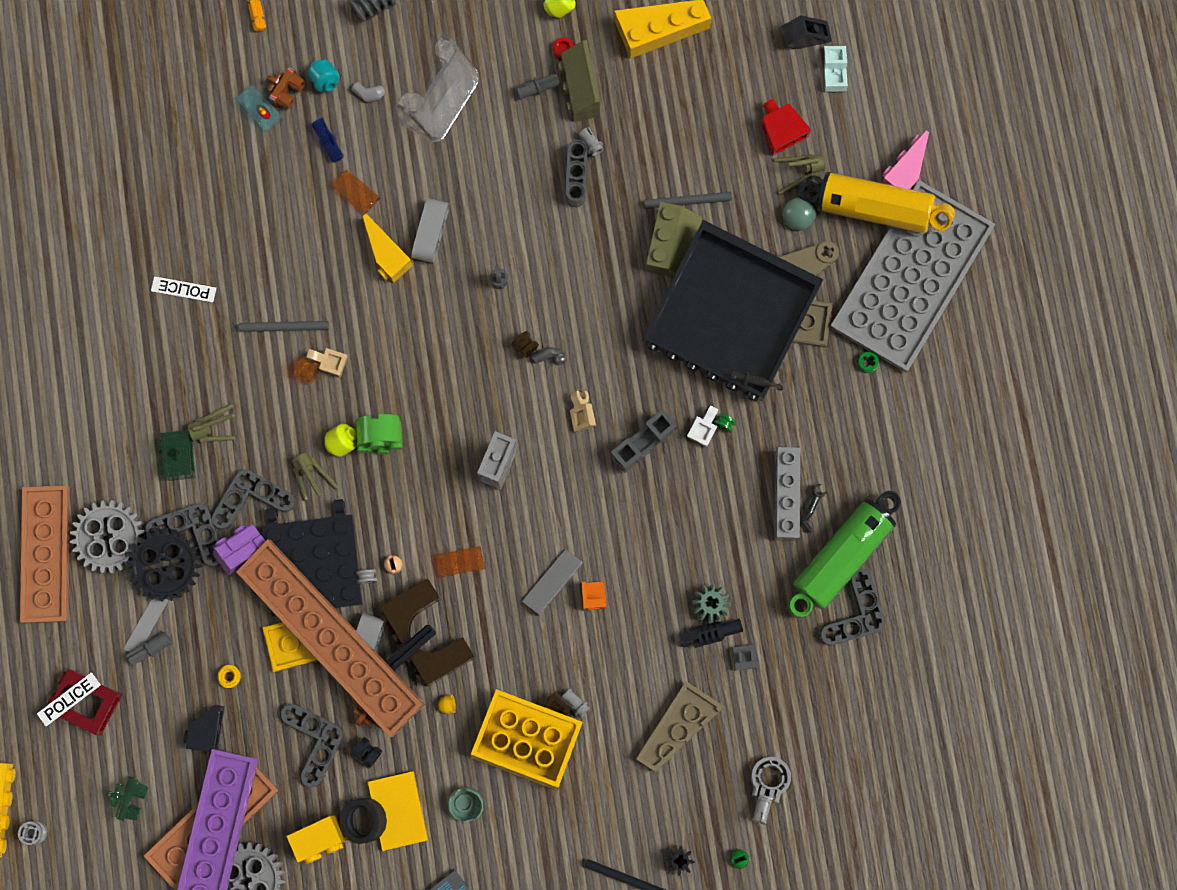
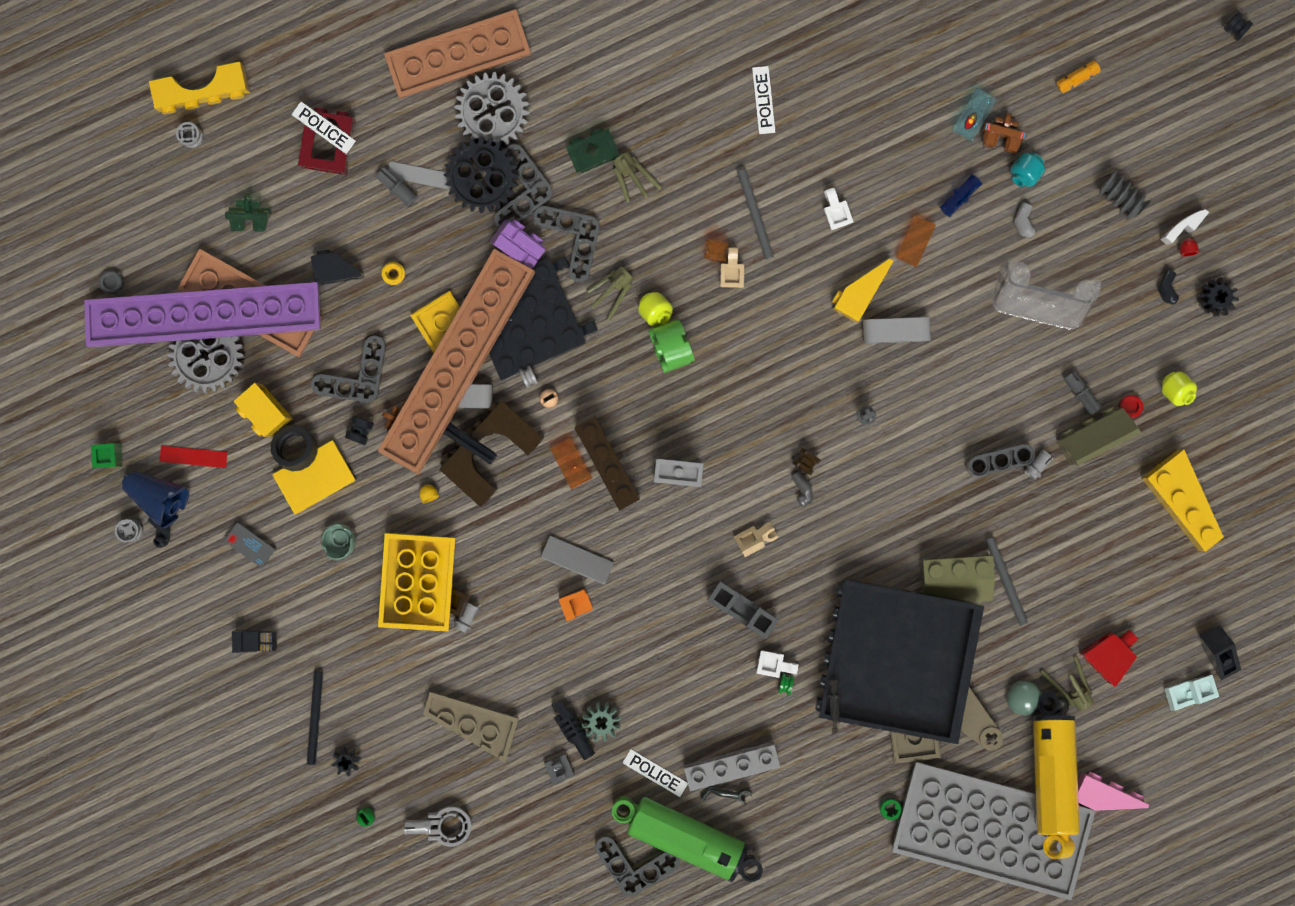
camera: 75 degrees right, 10 degrees up
(307, 252) = (837, 213): none -> white plate
(492, 517) = (607, 463): none -> dark brown arch
(774, 569) = (655, 773): none -> white sticker

